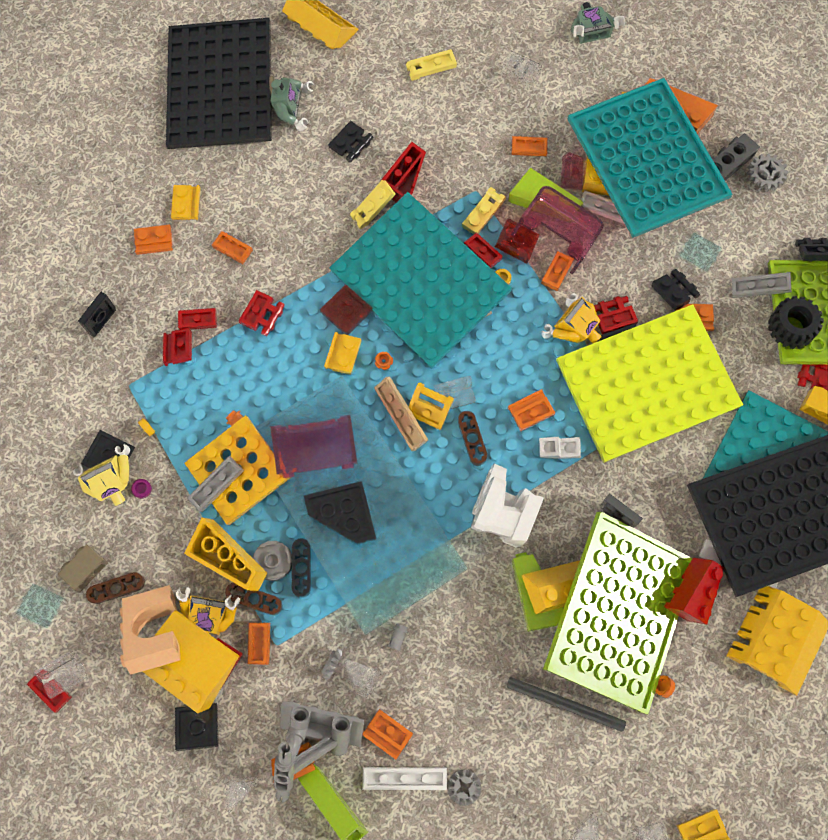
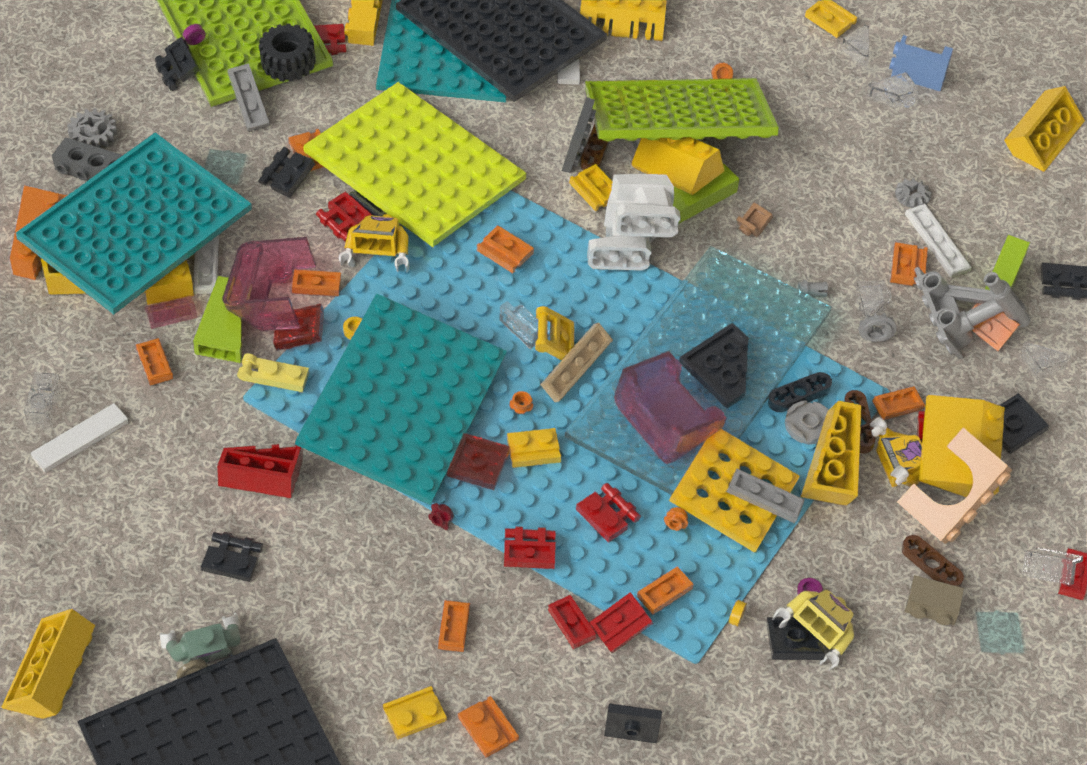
camera: 120 degrees left, 20 degrees down
(184, 384) = (665, 590): none -> orange plate
(264, 373) = (603, 517): none -> red plate
(318, 272) = (441, 515): none -> dark red plate
(373, 204) = (322, 484): light yellow plate -> none
(431, 64) = (71, 506): light yellow plate -> none
(471, 452) = (569, 283): reddish brown beam -> none
(483, 250) = (330, 353): red plate -> none
(485, 624) = (754, 220): none -> medium nougat bracket
(486, 86) = (79, 438): none -> white tile
(560, 448) = (531, 214): white slope -> none
(566, 704) = (786, 142): dark grey axle -> none
(572, 513) = (593, 186): none -> yellow plate
(697, 591) = (617, 66): red wedge -> none

